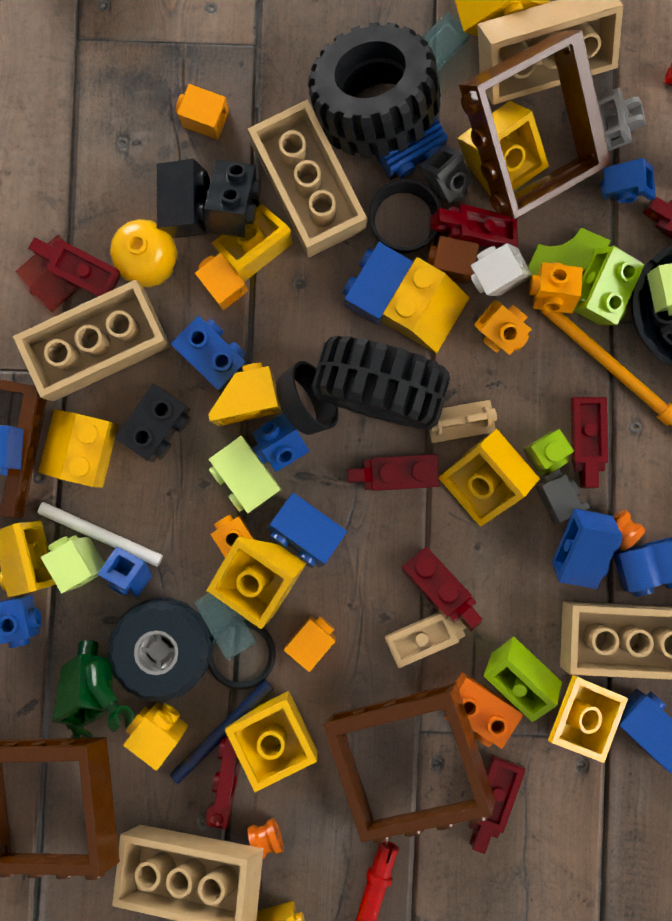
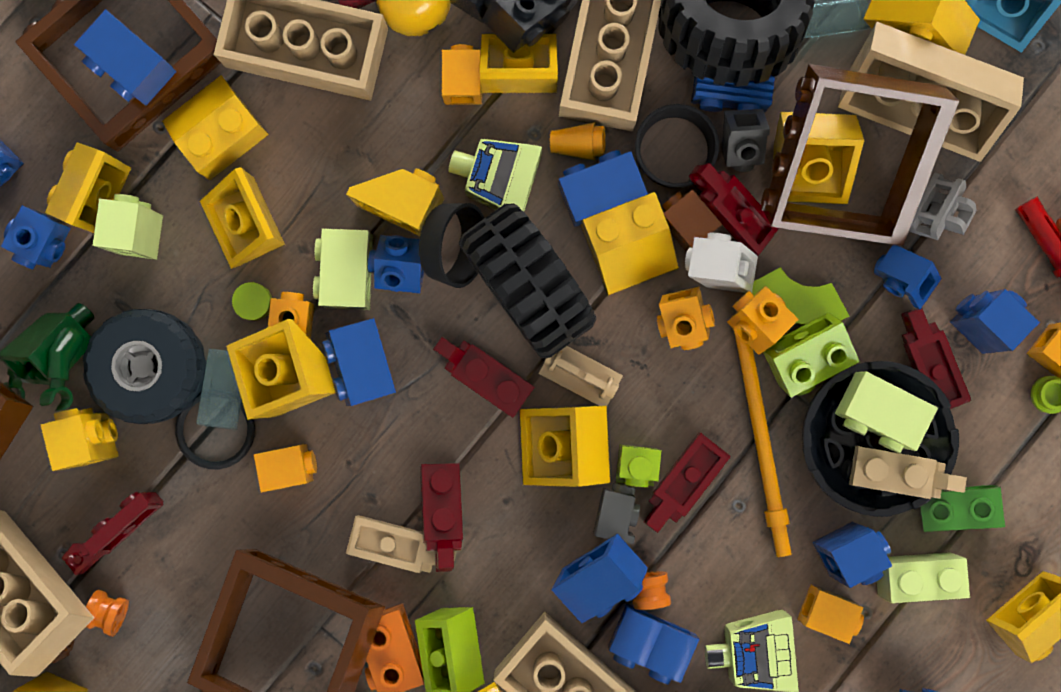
camera: 40 degrees right, 0 degrees up
(99, 533) = (173, 221): white bar -> none
(125, 573) = (166, 273): blue brick -> none
(145, 497) = (241, 218): none -> yellow slope
(154, 424) = (299, 159): black brick -> none
(197, 547) = (251, 301): none -> lime tile
(209, 352) = (400, 132): blue brick -> none
(219, 733) = (147, 484): dark blue bar -> none
(272, 741) = (179, 529): yellow slope -> none
(299, 327) = (498, 172): none -> yellowish green torso
(335, 264) = (580, 141): none -> light orange cone

